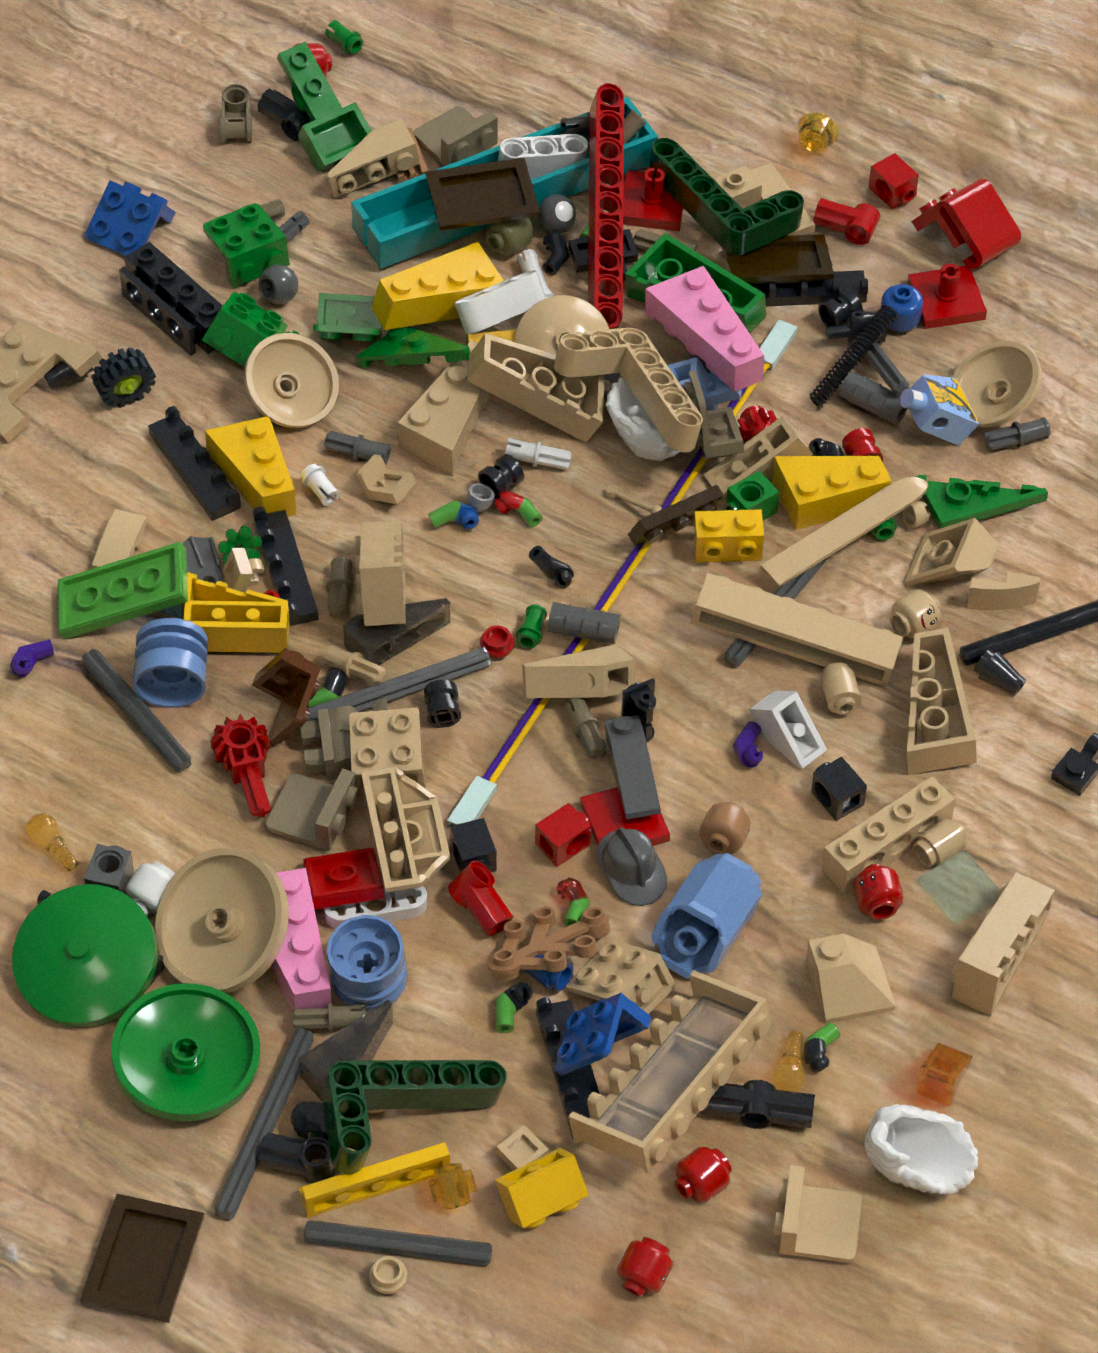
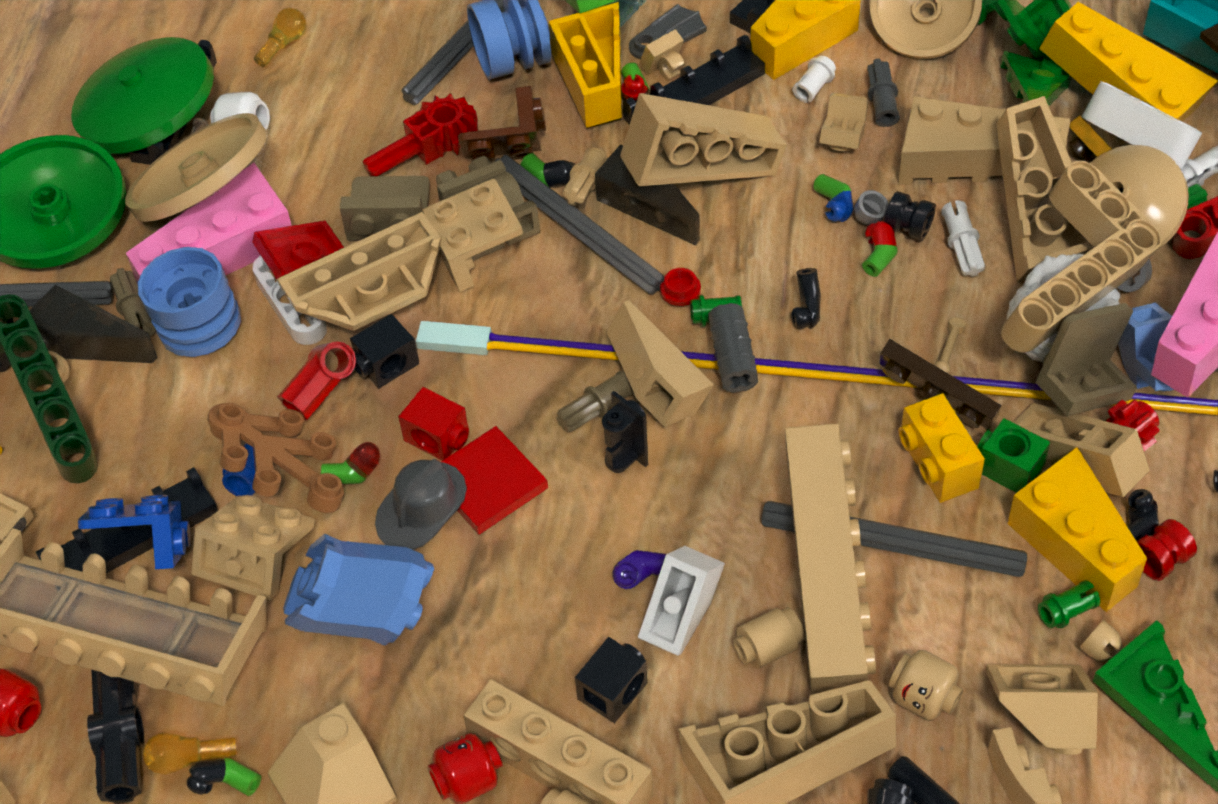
camera: 75 degrees right, 0 degrees up
(110, 859) = (253, 76): dark grey brick -> none
(240, 540) = (697, 43): green plant -> none
(442, 704) = (569, 264): black wheel -> none
(509, 1003) = (194, 449): arm -> none
(631, 766) = (548, 451): dark grey slope -> none
(726, 827) = (500, 575): medium nougat head -> none
(844, 529) = (1020, 565): tan piece -> none

